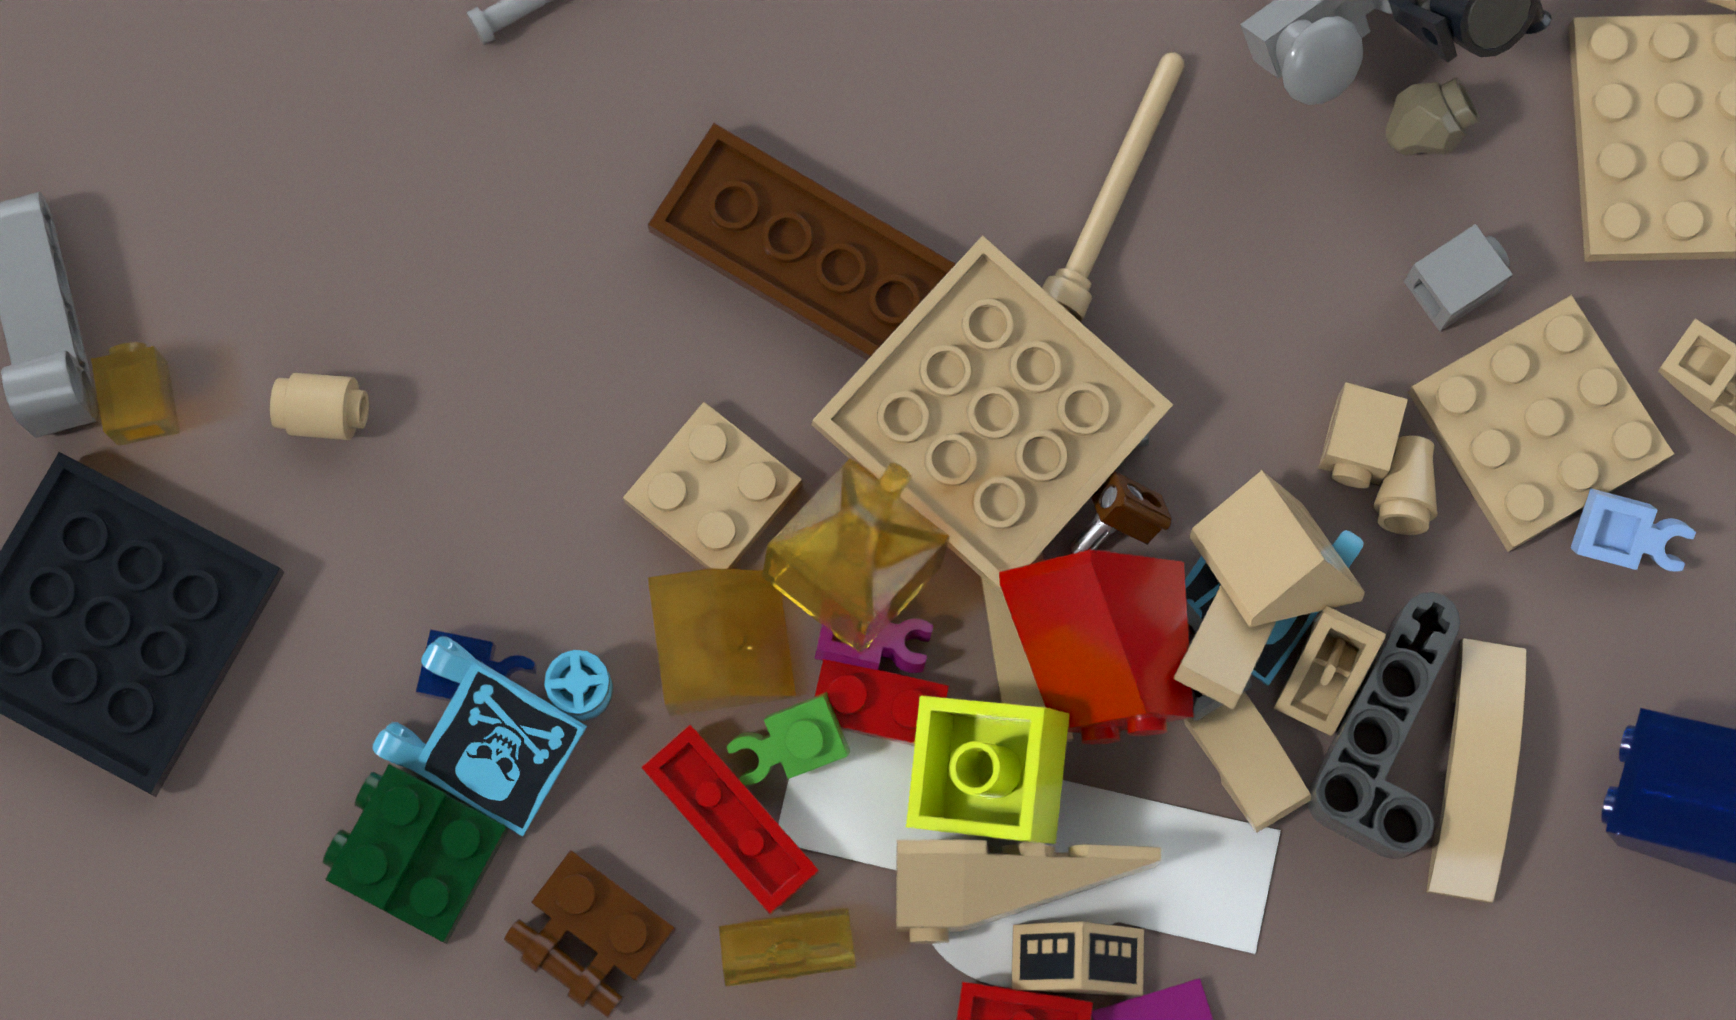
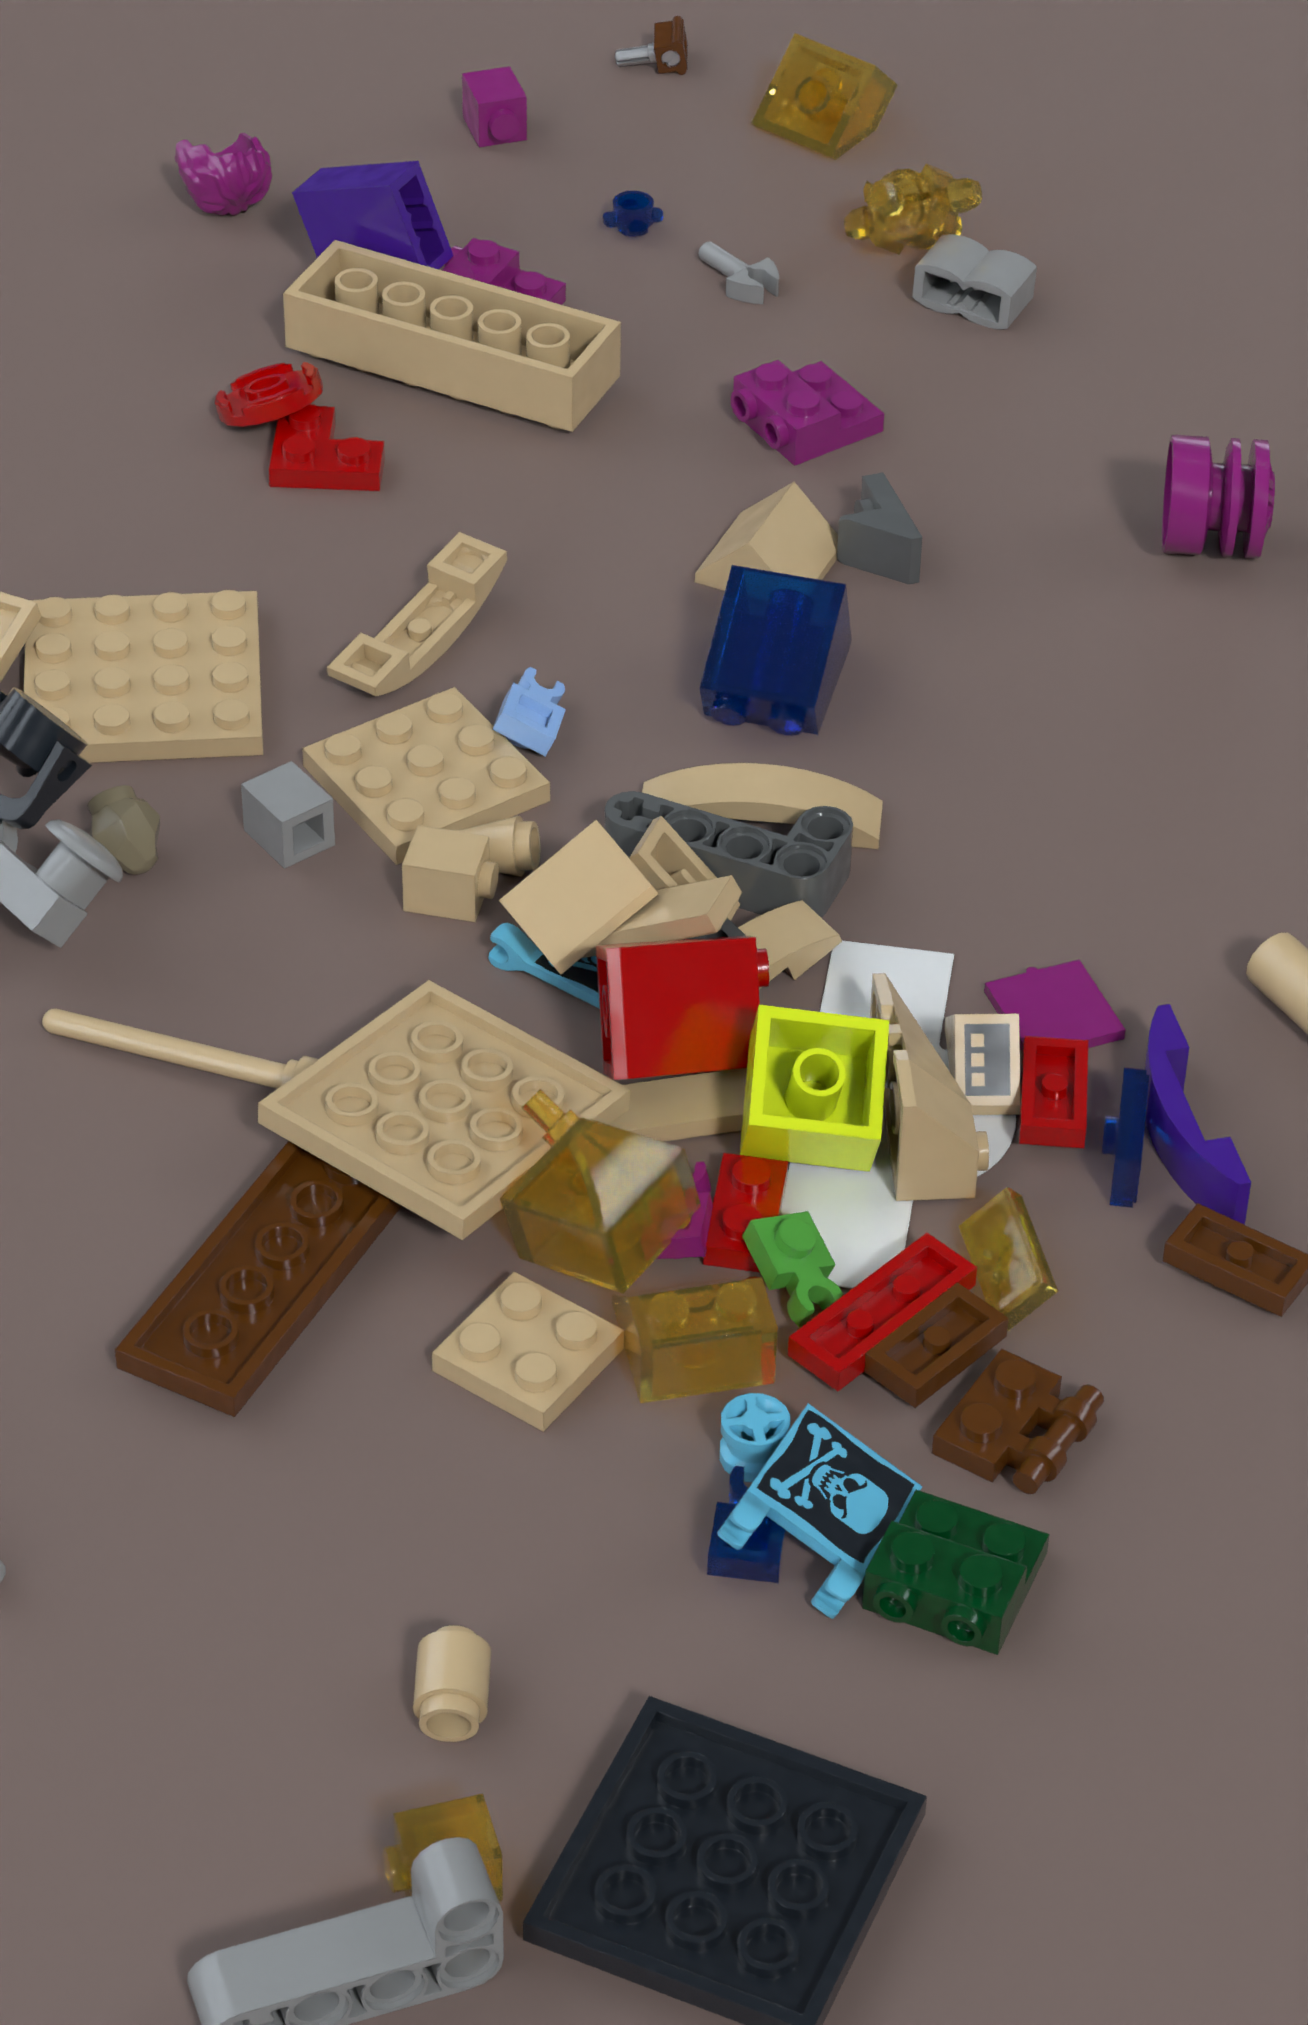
camera: 95 degrees left, 35 degrees down
(683, 865) = (936, 1345): none -> reddish brown plate
(1126, 508) = (538, 1018): reddish brown piece -> none

